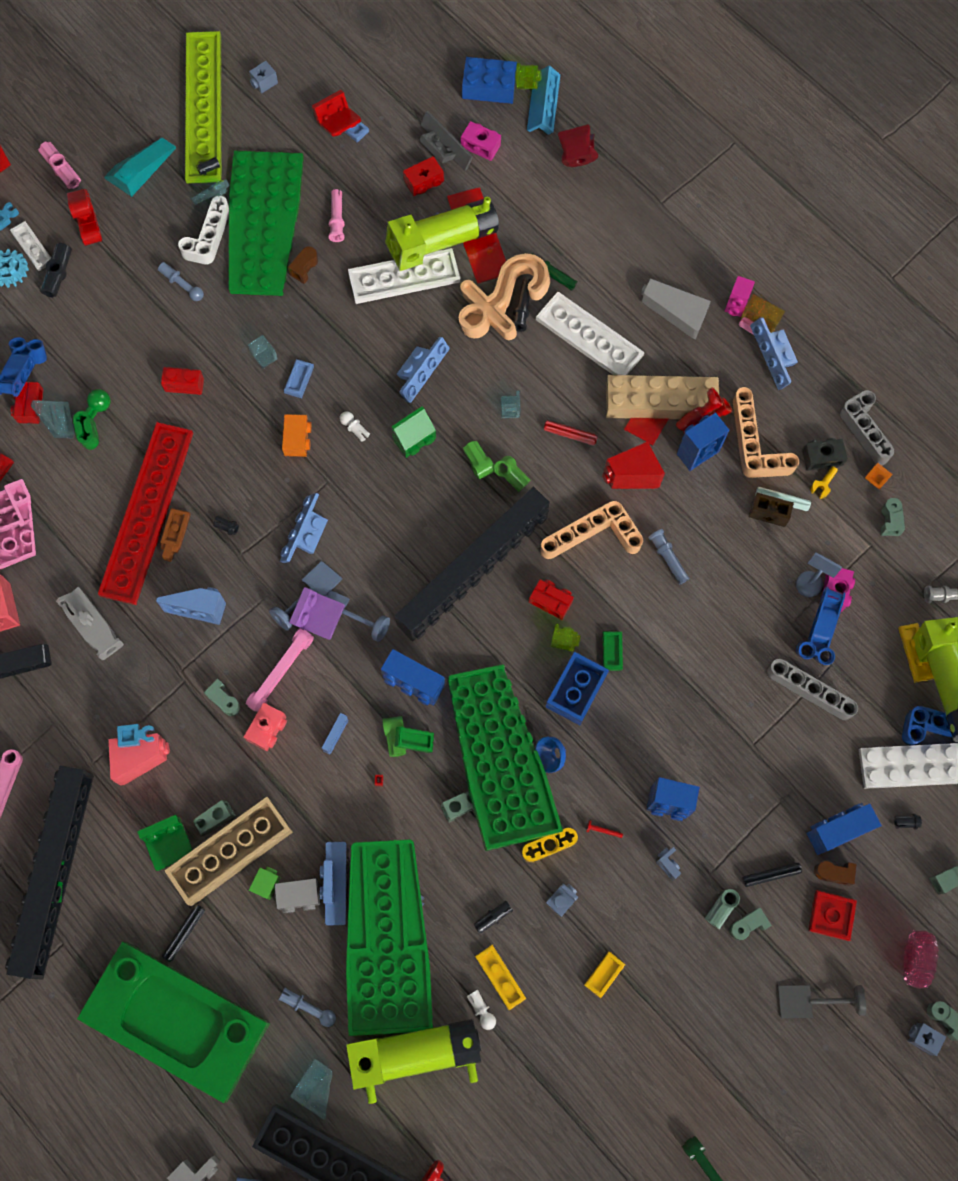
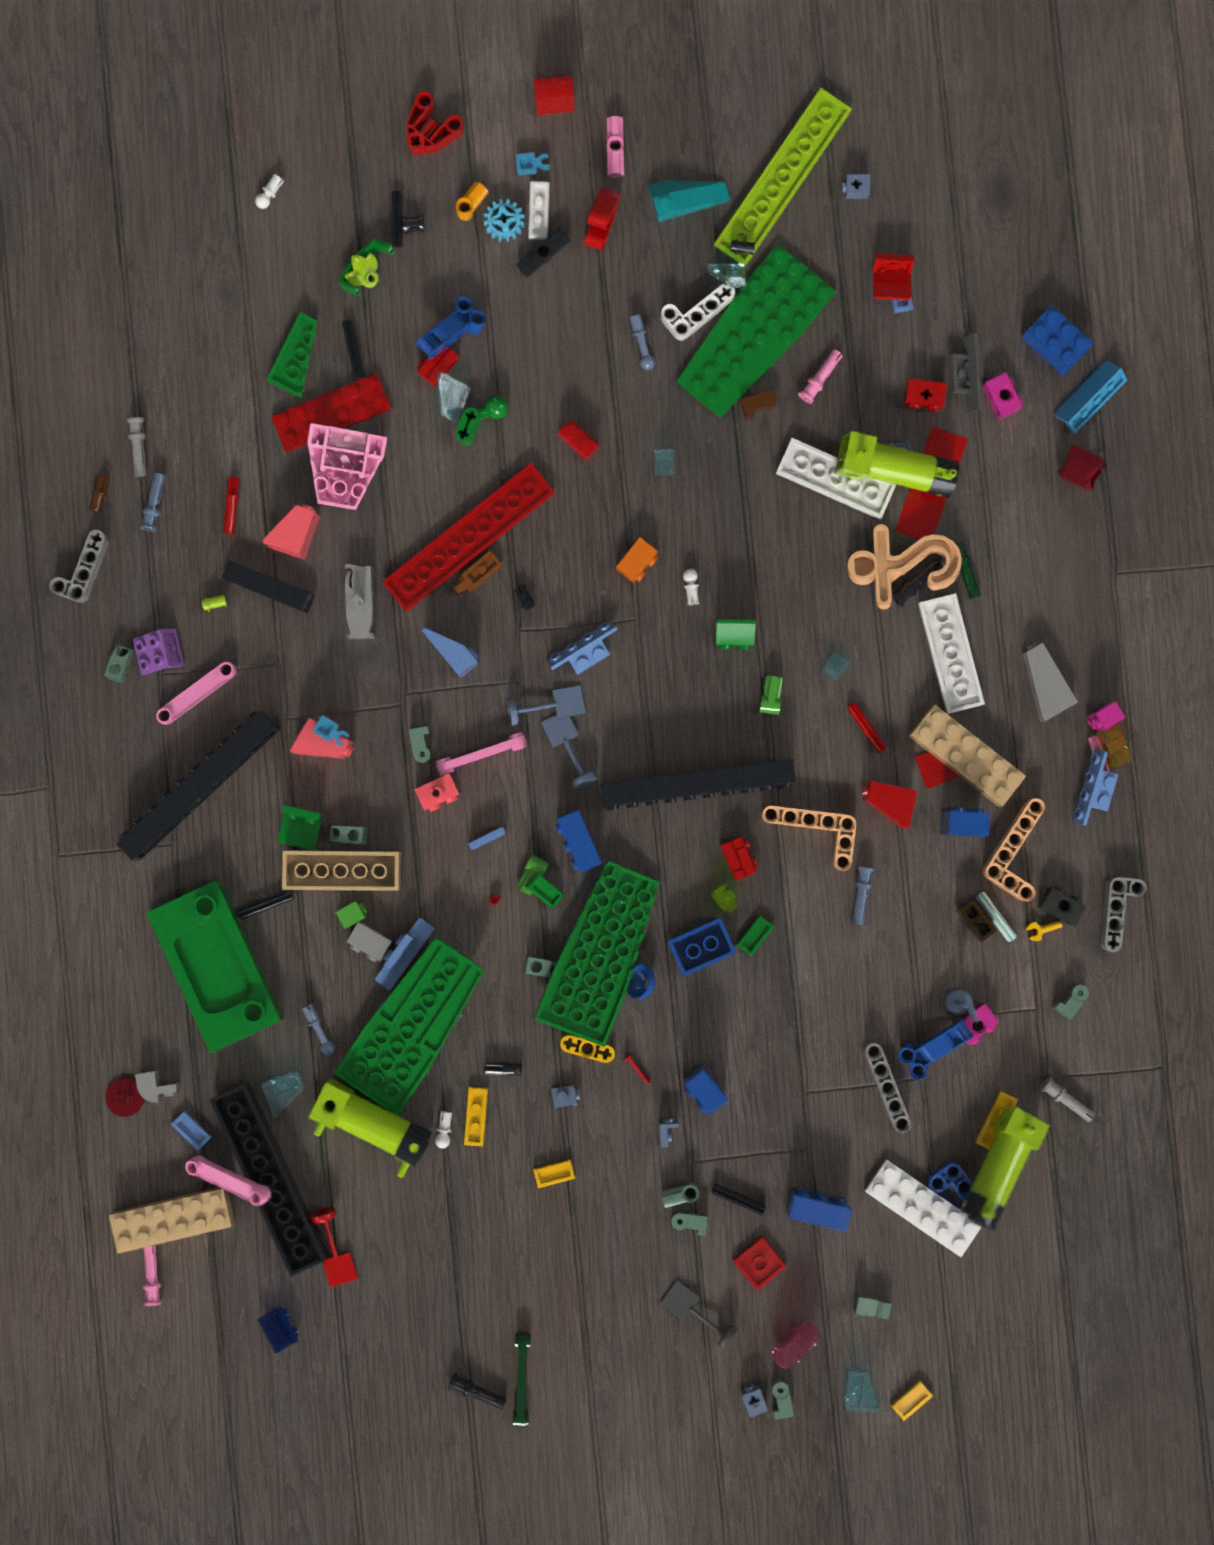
camera: 40 degrees right, 15 degrees up
(298, 378) = (677, 508): medium blue tile -> none
(317, 613) = (543, 730): medium lavender bracket -> none
(420, 367) = (785, 574): medium blue bracket -> none
(512, 473) = (788, 722): bright green piece -> none
(527, 76) = (1093, 370): clear neon green brick -> none
(715, 404) = (981, 799): red piece -> none
(841, 875) = (786, 1236): reddish brown leg -> none
(878, 476) = (1091, 958): orange tile -> none
(908, 821) = (874, 1240): black pin -> none

